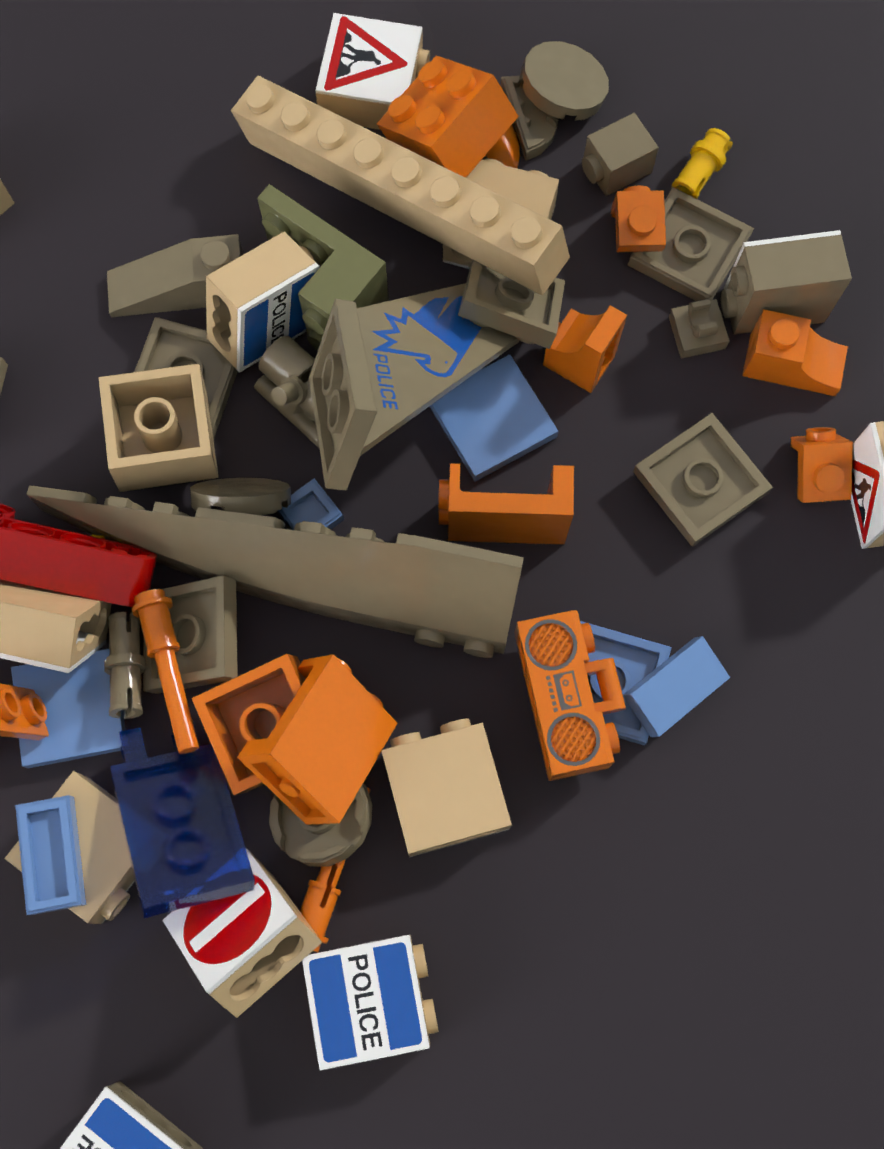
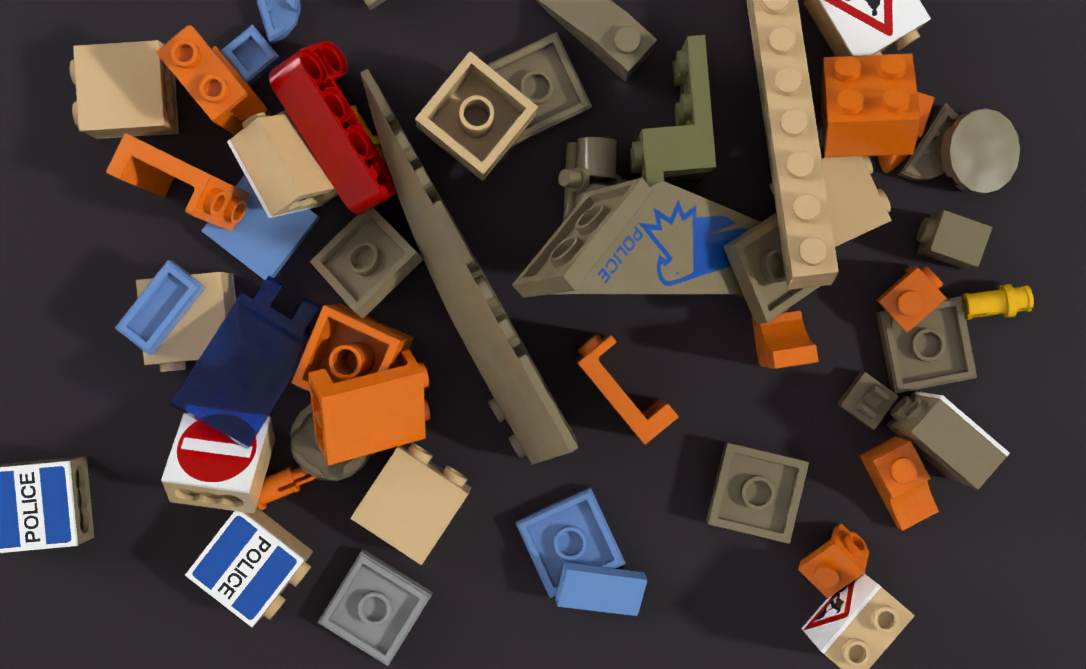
camera: 50 degrees right, 15 degrees up
(125, 666) = (313, 237): dark tan pin -> none
(161, 643) = (342, 251): orange pin -> none
(242, 495) = (480, 210): dark tan tile -> none
(257, 299) = (622, 100): piece -> none
(311, 505) = (512, 255): medium blue tile -> none
(494, 418) = (683, 326): medium blue tile -> none
(516, 920) = (375, 607): none -> light grey tile
(556, 677) = (517, 543): orange piece -> none

